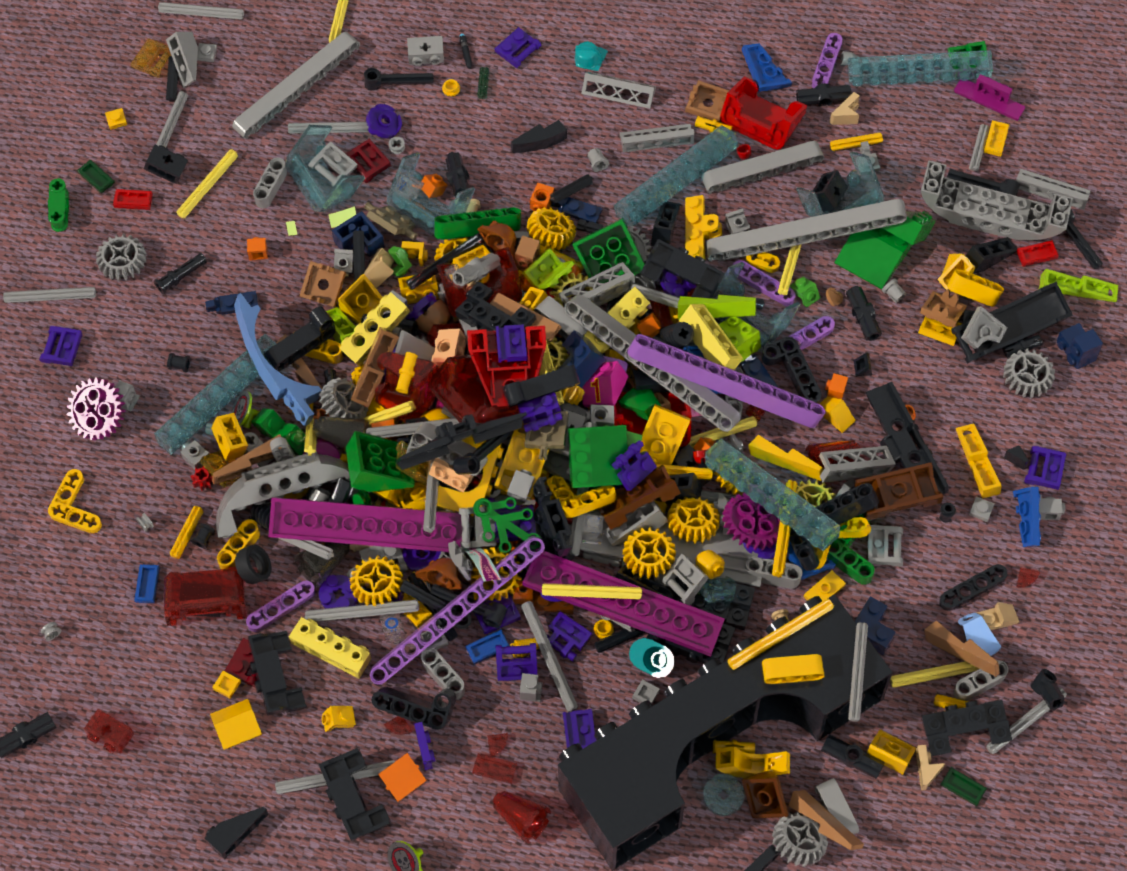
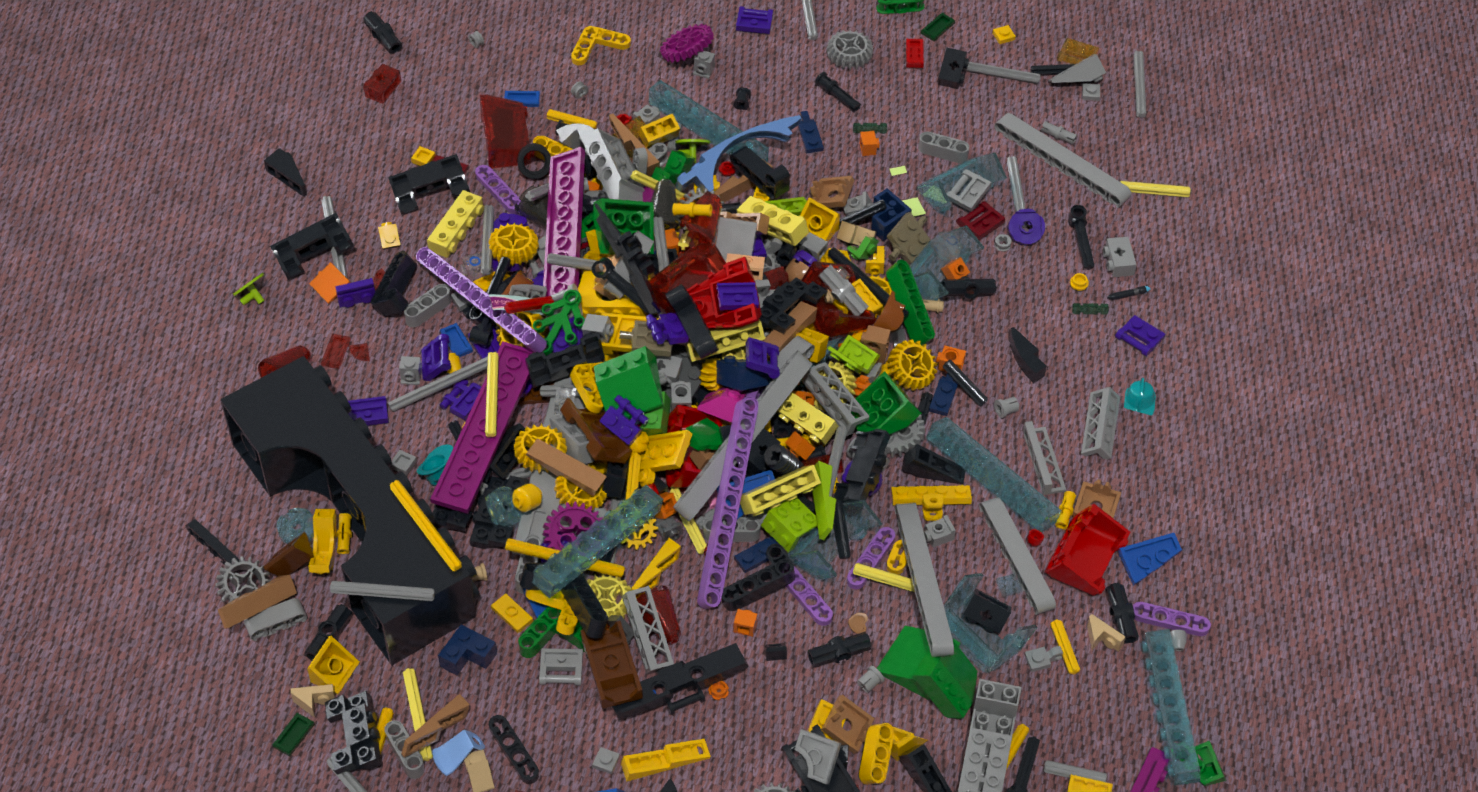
camera: 85 degrees right, 10 degrees down
(207, 183) = (940, 104): light yellow axle -> none
(232, 248) = (858, 127): none -> clear green axle
(235, 724) = (385, 163): yellow slope -> none
(259, 84) = (1059, 132): none -> light grey pin
(485, 550) = (527, 304): none -> red axle
(576, 332) = (757, 357): none -> dark purple plate
(681, 523) = (565, 465): none -> medium nougat slope
(685, 458) = (646, 477): none -> yellow plate
(689, 574) = (507, 477): light grey plate -> none
(792, 178) = (1008, 585): none -> clear light blue tile
(793, 669) = (385, 533): yellow beam -> none
(806, 291) = (863, 594): bright green bracket -> none
(837, 413) = (714, 623): yellow slope -> none
(947, 511) = (597, 721): black pin -> none

